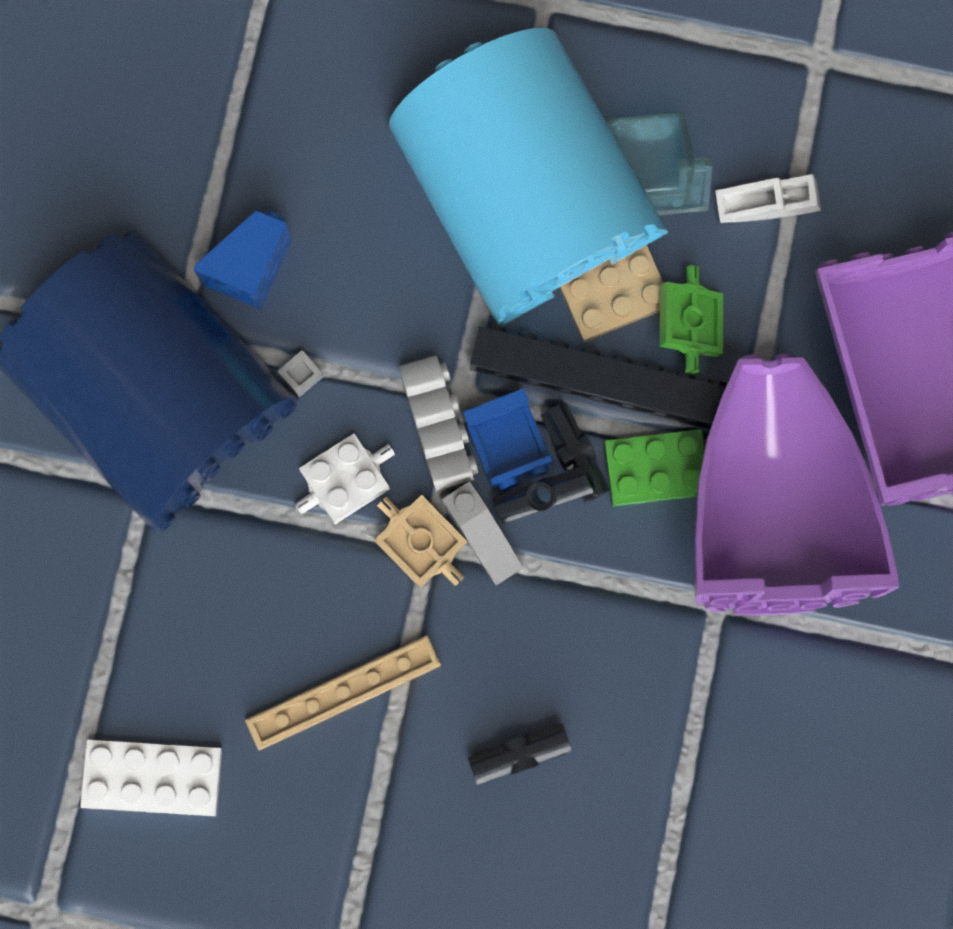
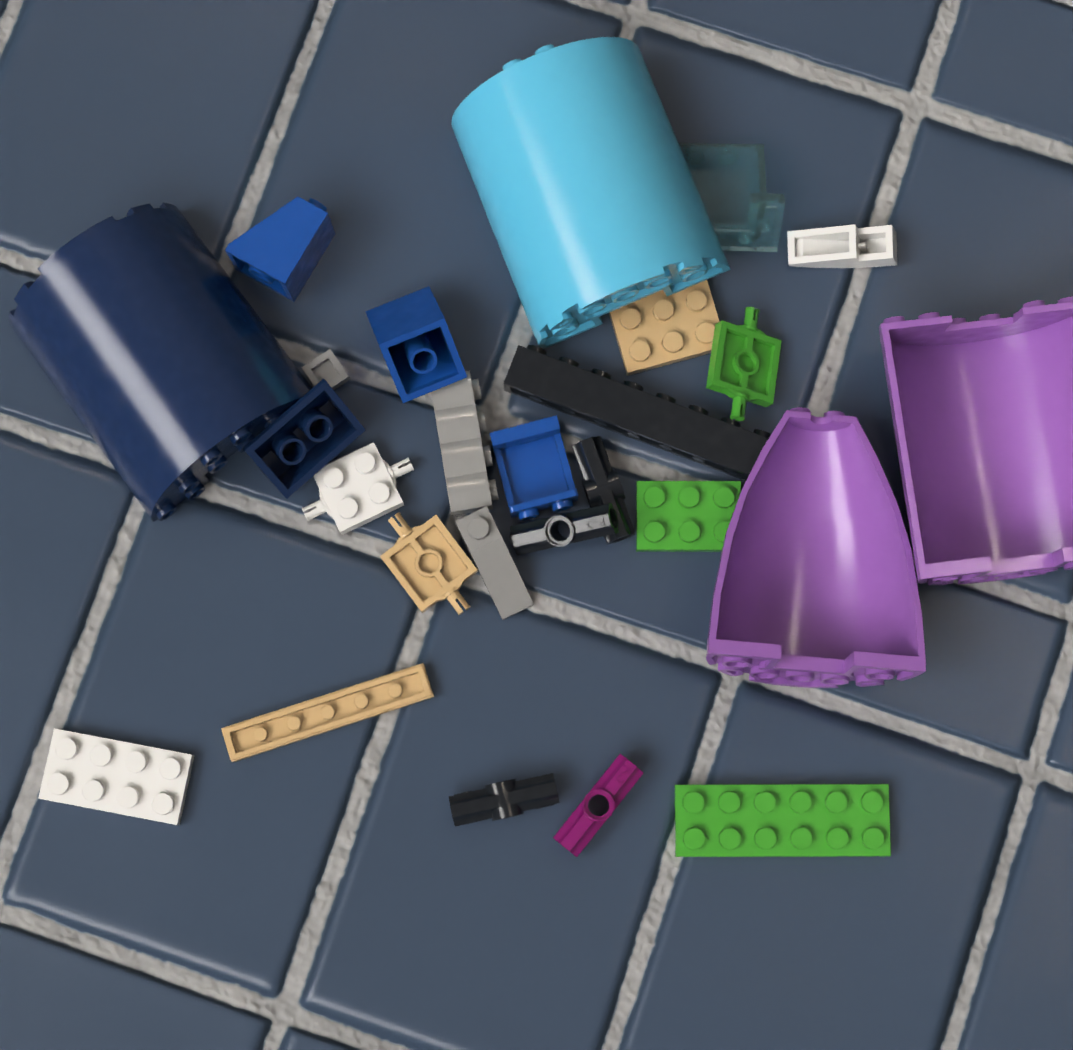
camera: 15 degrees right, 0 degrees up
(290, 439) = (304, 439): none -> dark blue slope
(383, 336) = (416, 344): none -> blue slope
(620, 729) = (612, 785): none -> magenta piece
(779, 741) = (782, 820): none -> bright green plate

